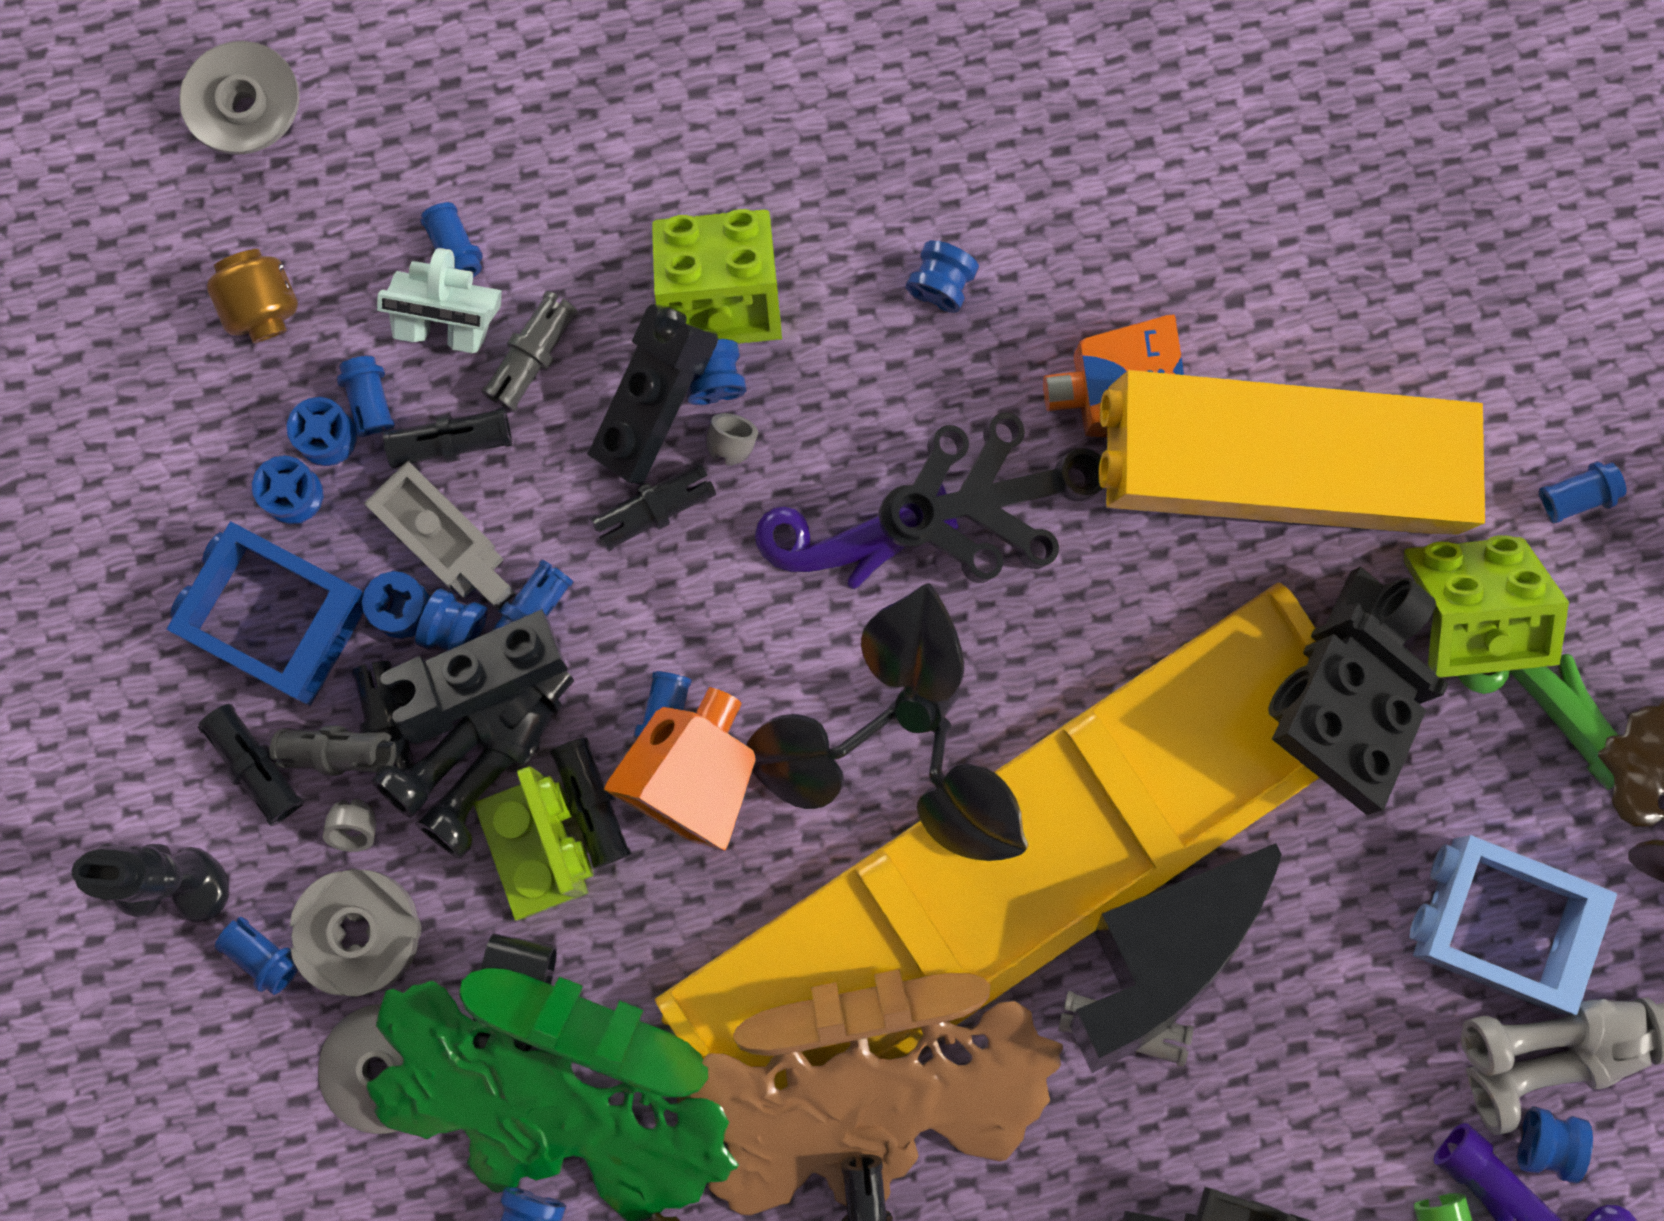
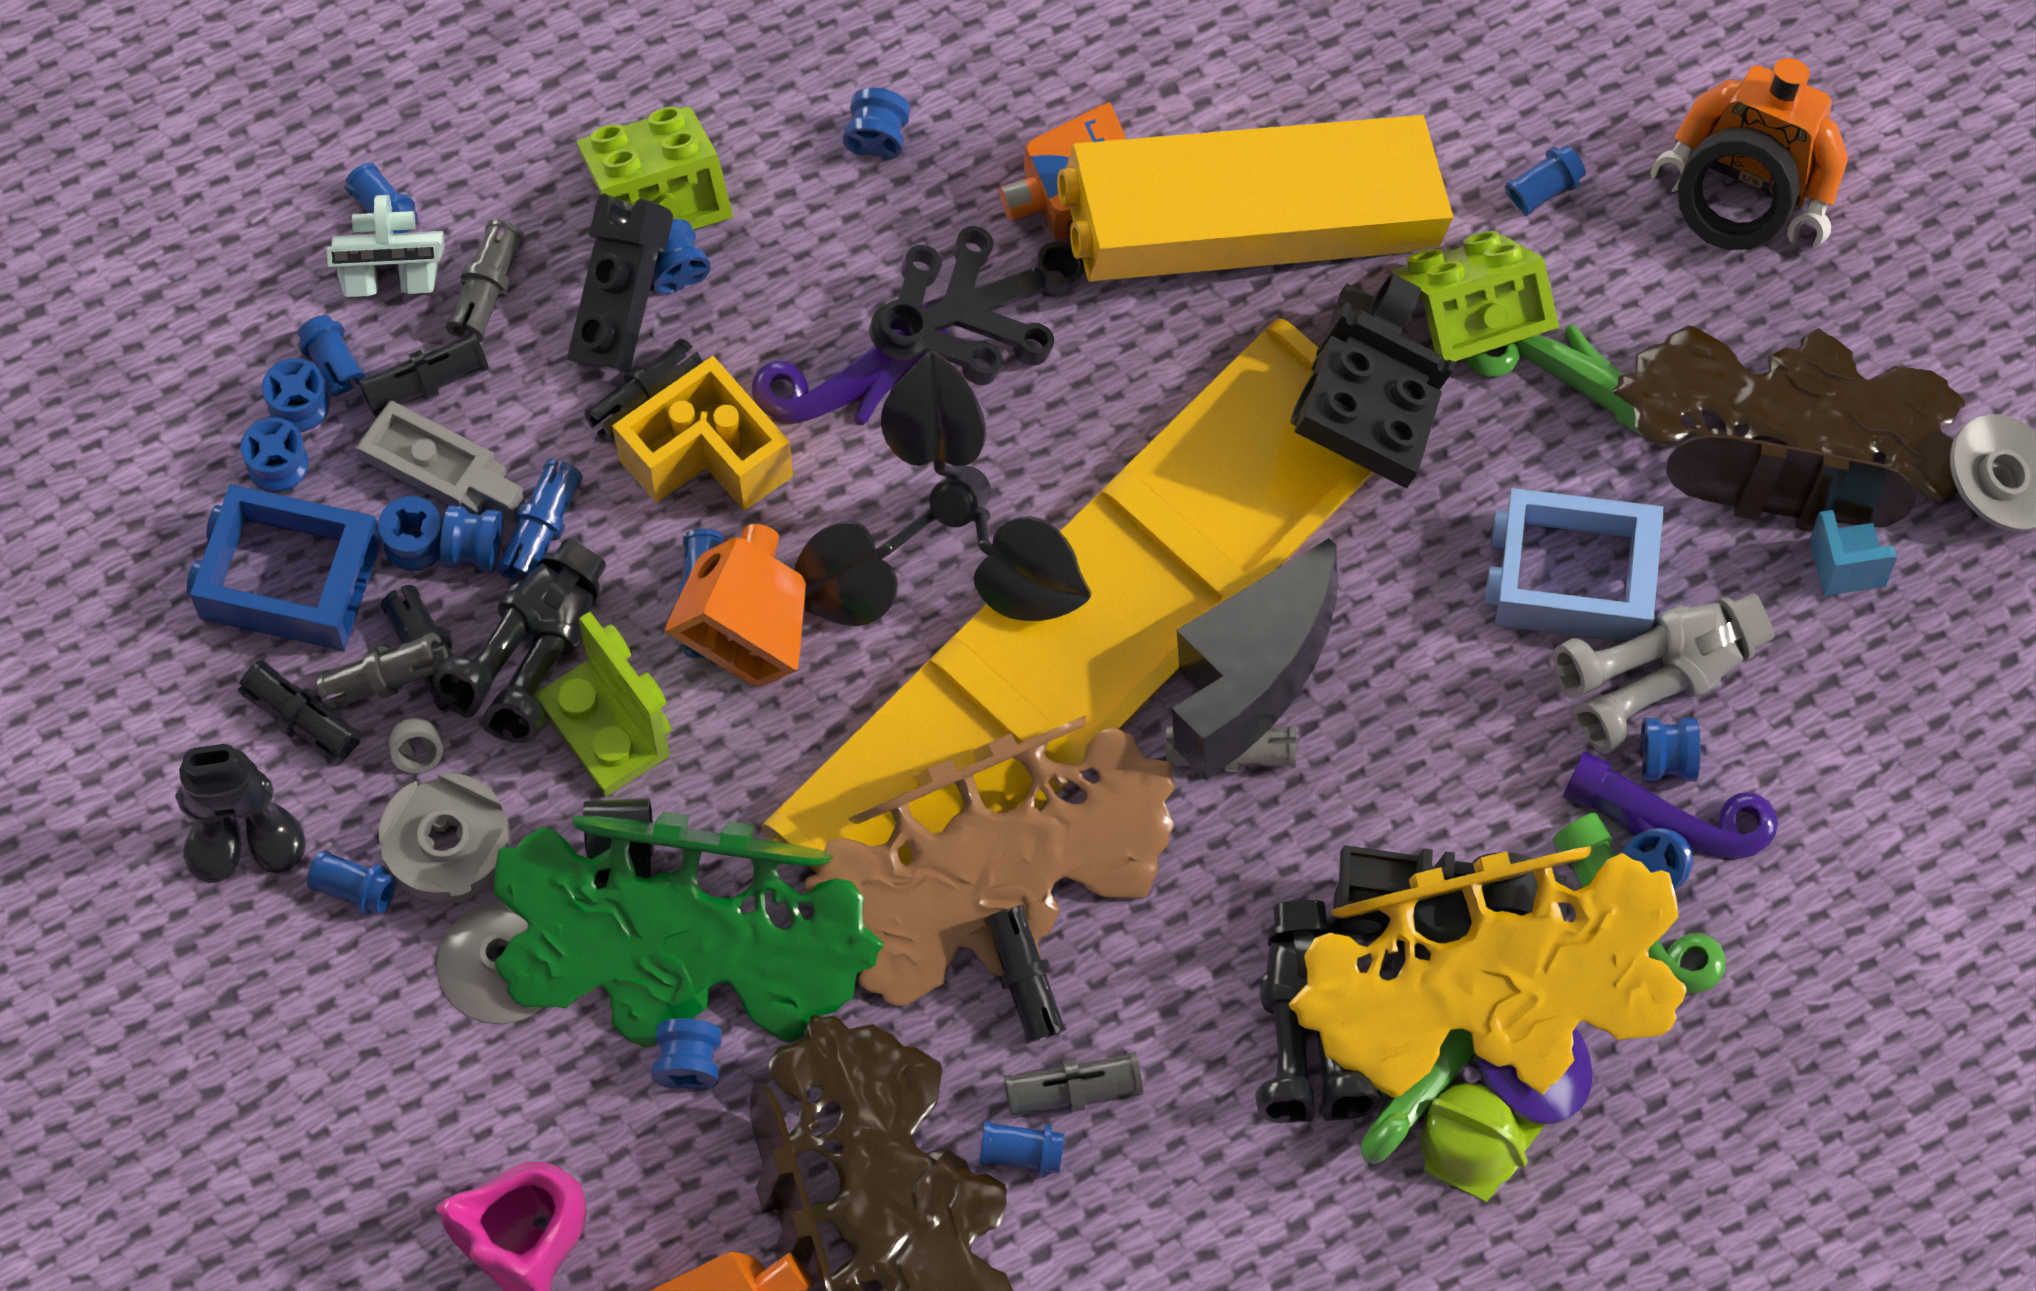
camera: 15 degrees left, 15 degrees down
(225, 77) = (131, 93): light grey dish -> none
(252, 295) = (194, 287): pearl gold head -> none
(472, 676) = (506, 567): black plate -> none
(590, 802) = (660, 664): black pin -> none
(695, 563) = (699, 426): none -> yellow brick
(731, 438) = (706, 312): light grey hinge -> none

